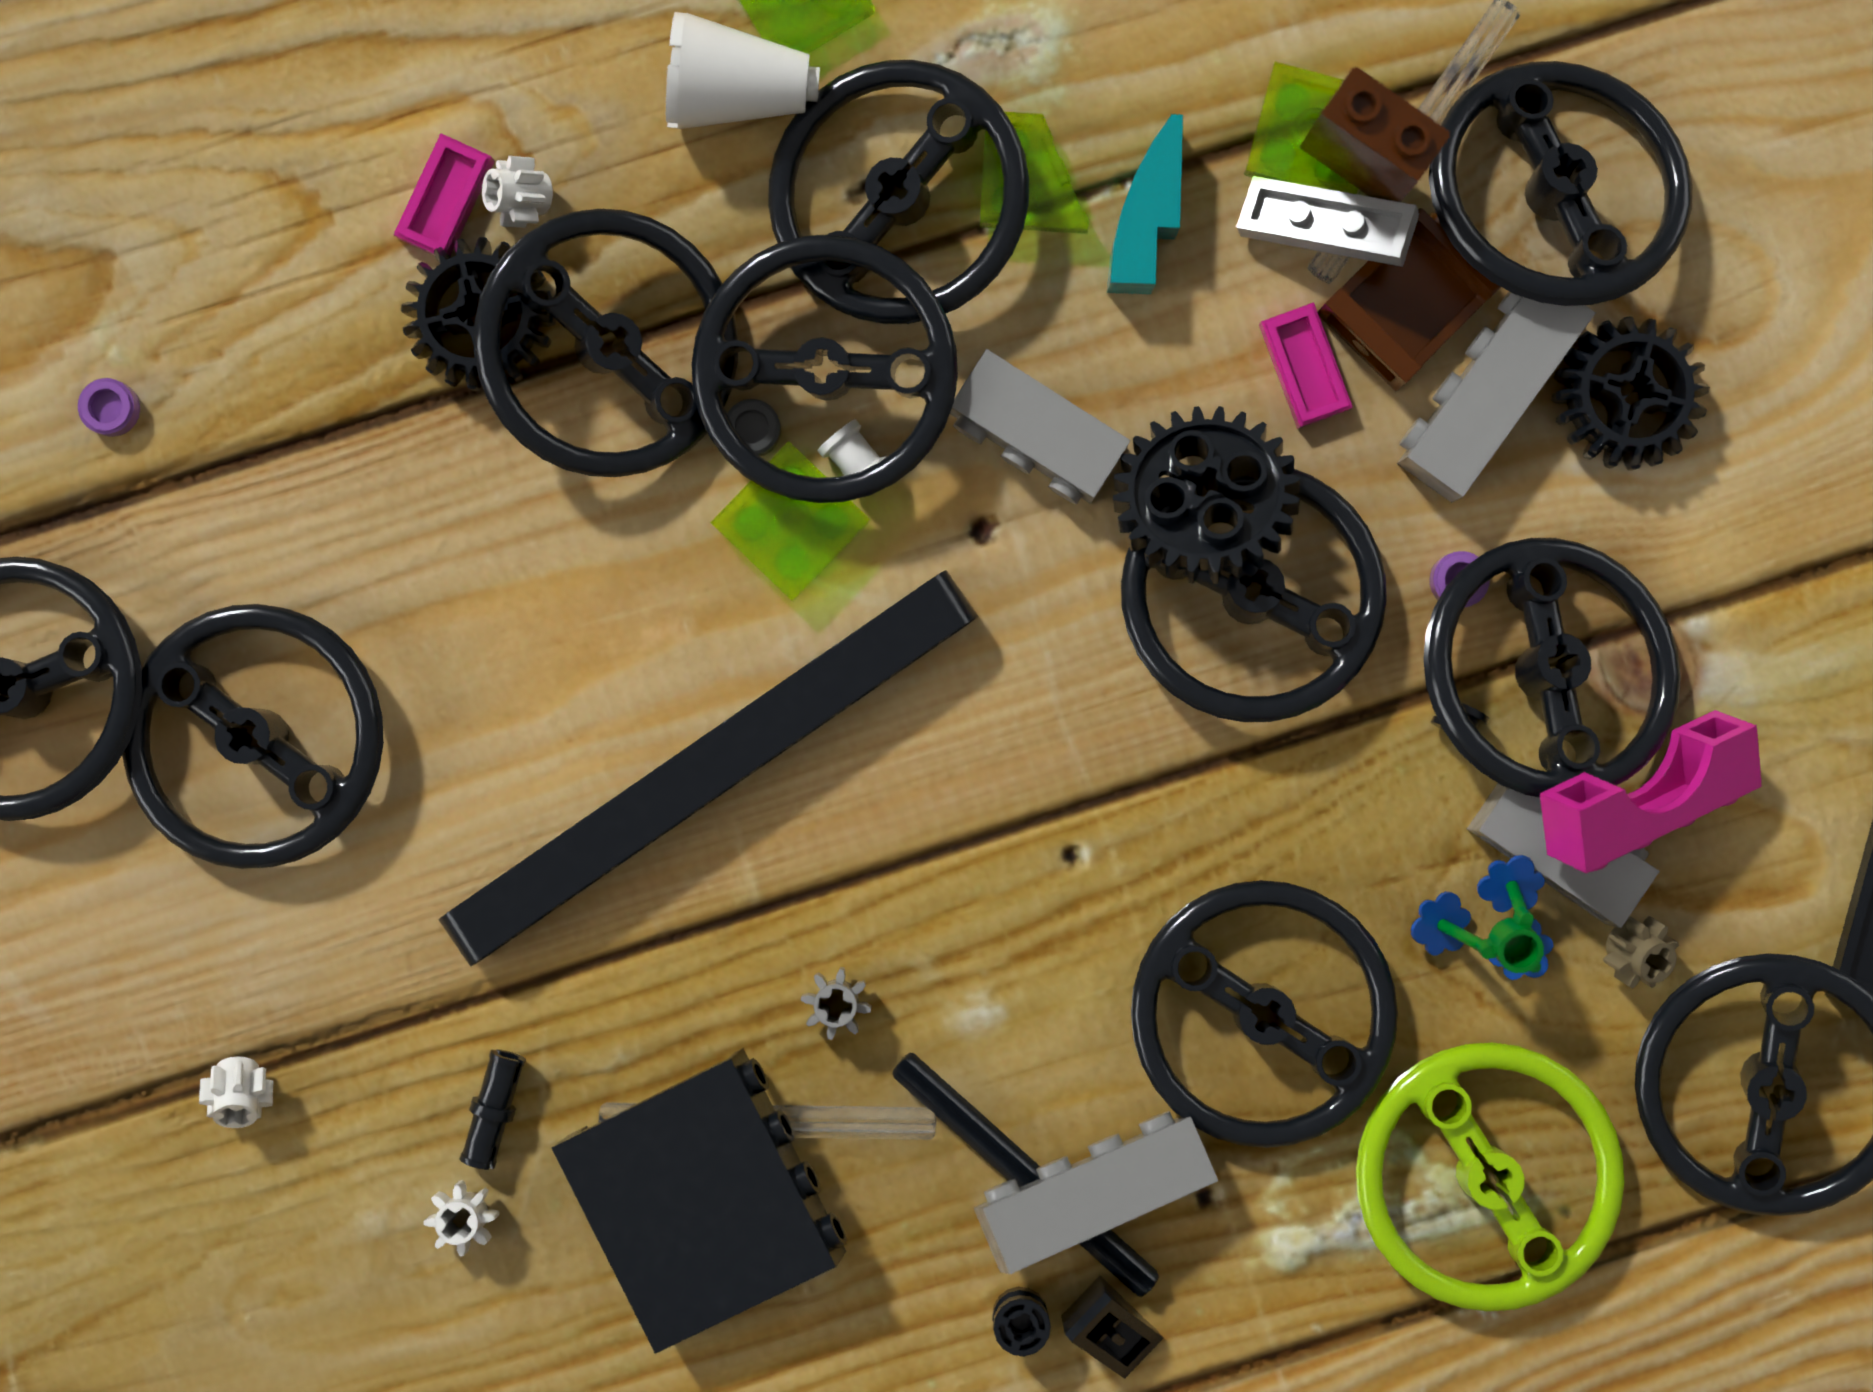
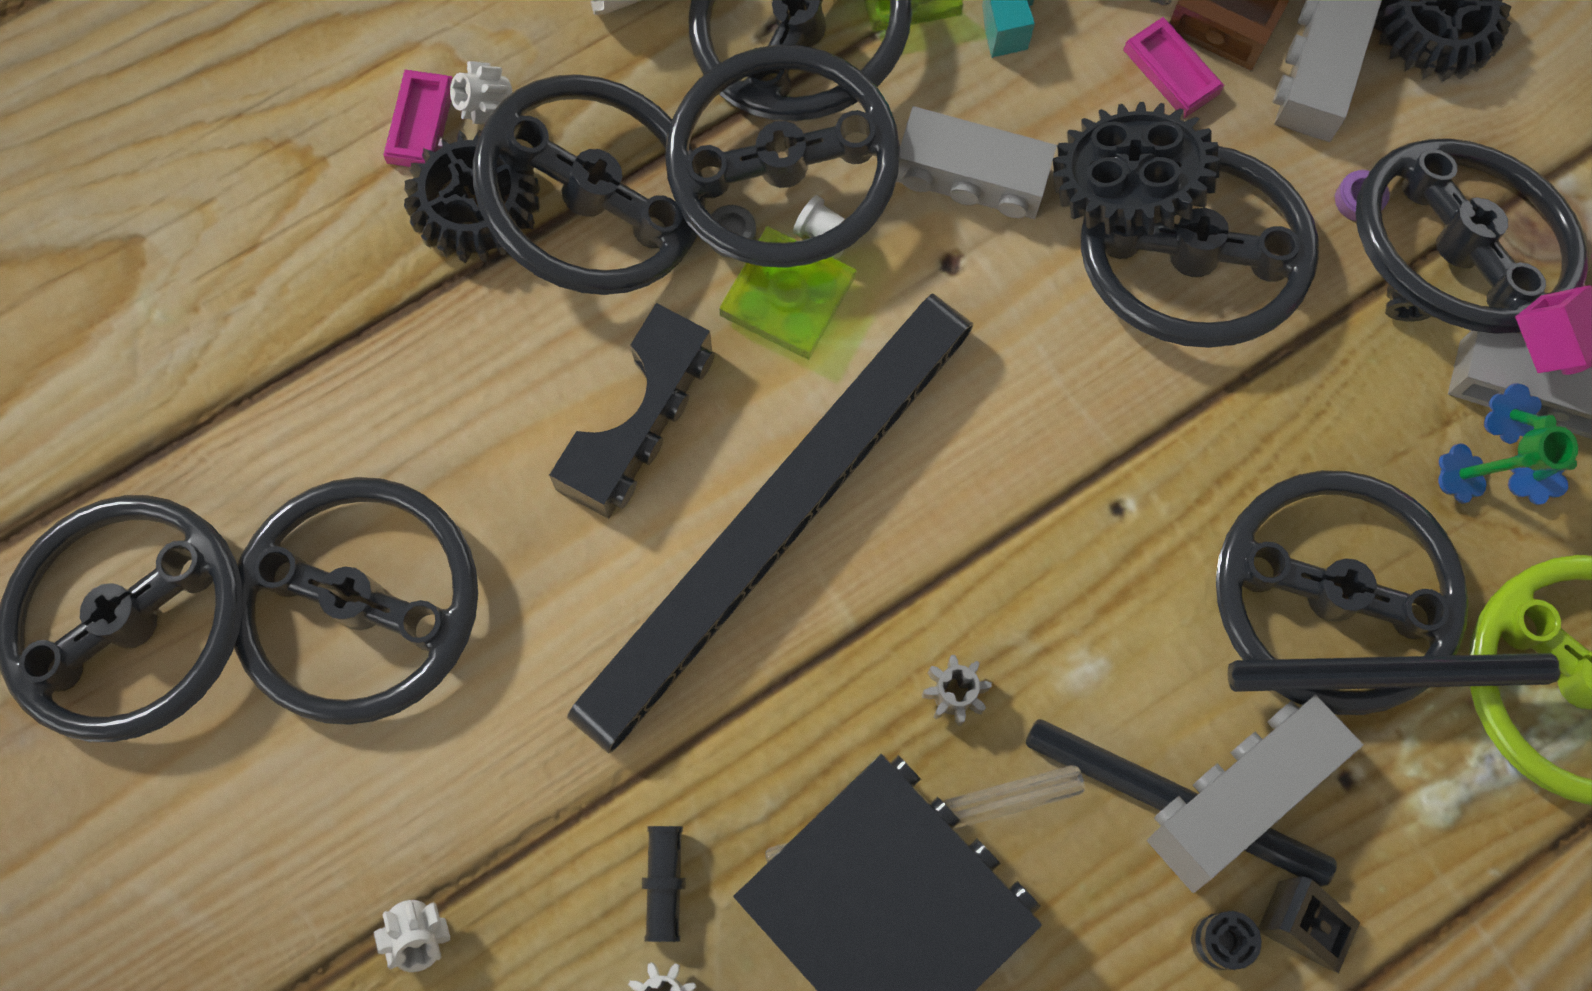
camera: 20 degrees left, 15 degrees down
(108, 407) = (162, 358): medium lavender tile -> none
(641, 565) = (601, 466): none -> black arch
(1276, 1118) = (1393, 672): none -> black axle

